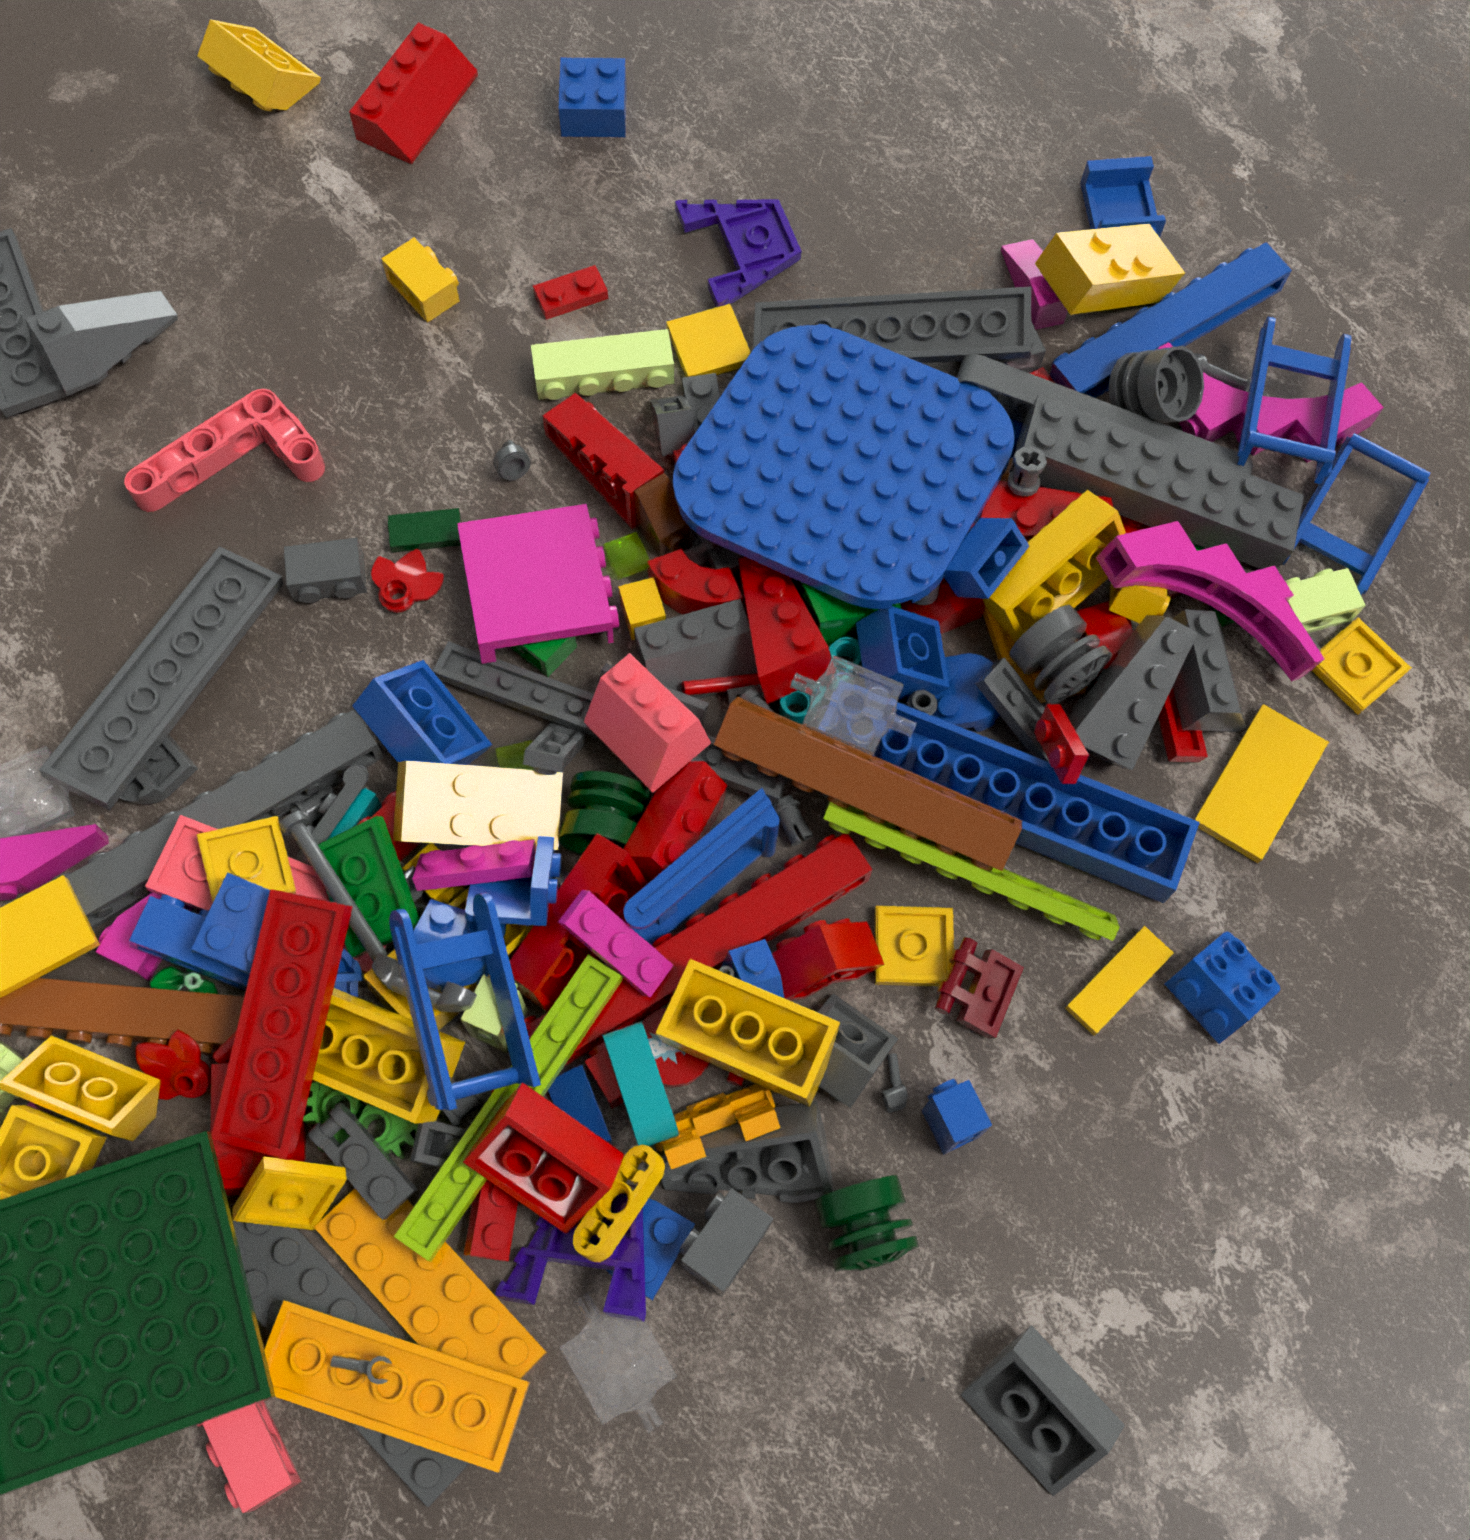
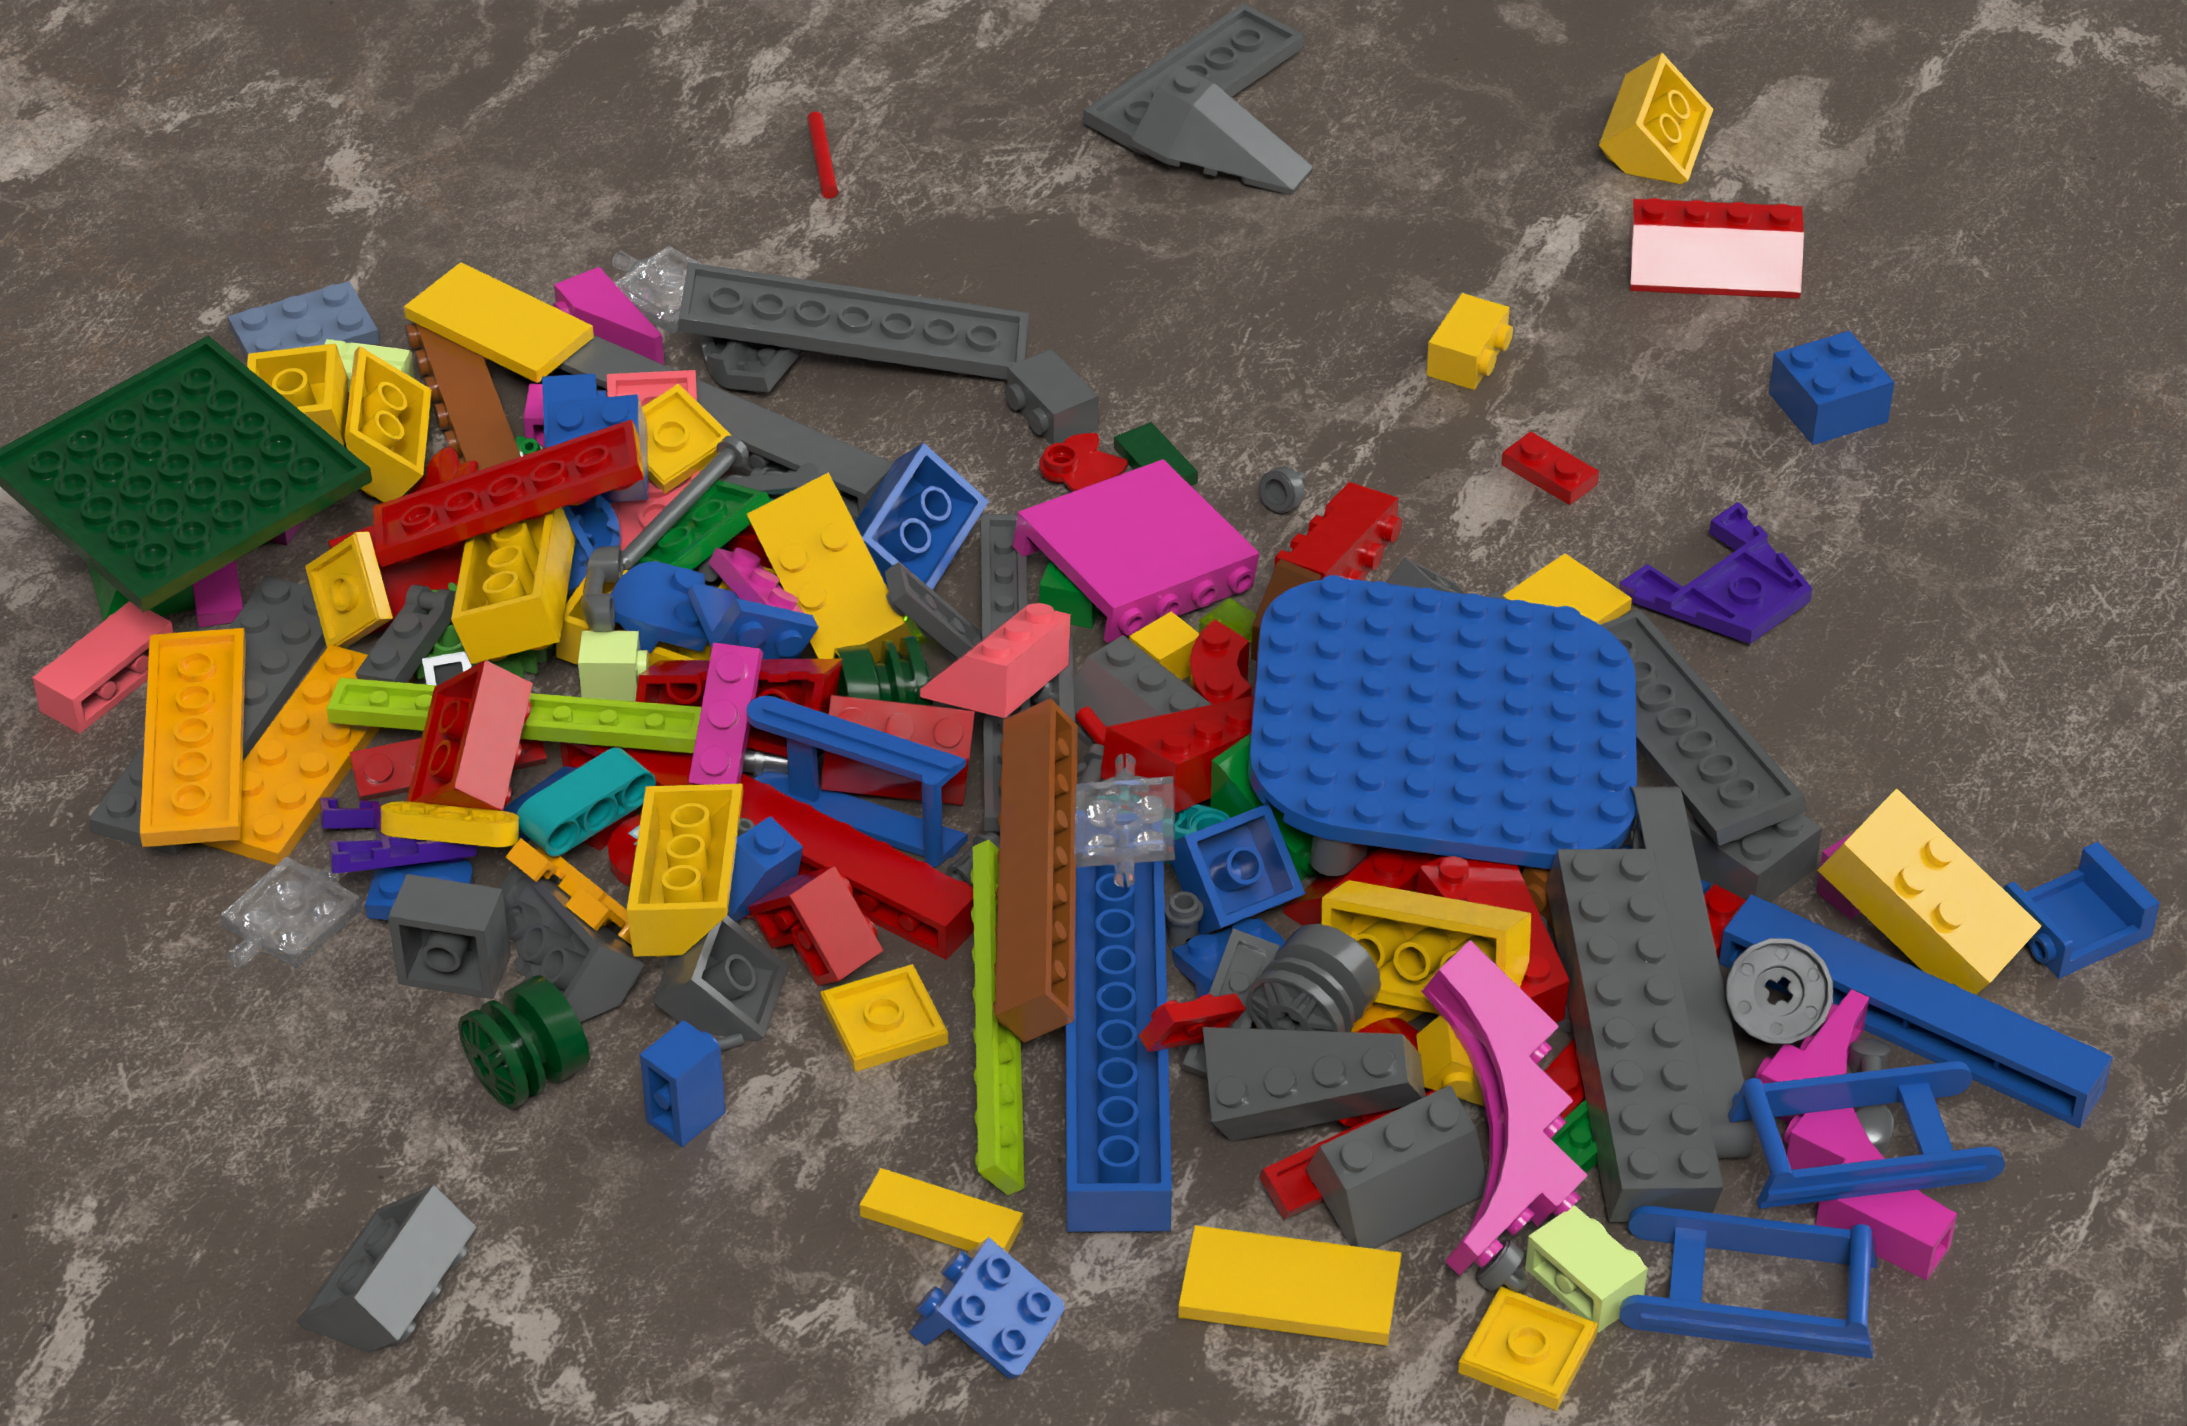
camera: 70 degrees right, 25 degrees down
(228, 438) = (1191, 284): coral beam -> none
(360, 1366) = (201, 699): dark grey hand -> none
(485, 942) = (633, 562): blue piece -> none
(603, 364) = (1464, 519): yellowish green brick -> none
(985, 557) = (1381, 860): blue brick -> none
(989, 992) = (856, 1089): dark red plate -> none
(1026, 471) = (1530, 877): dark grey bush -> none

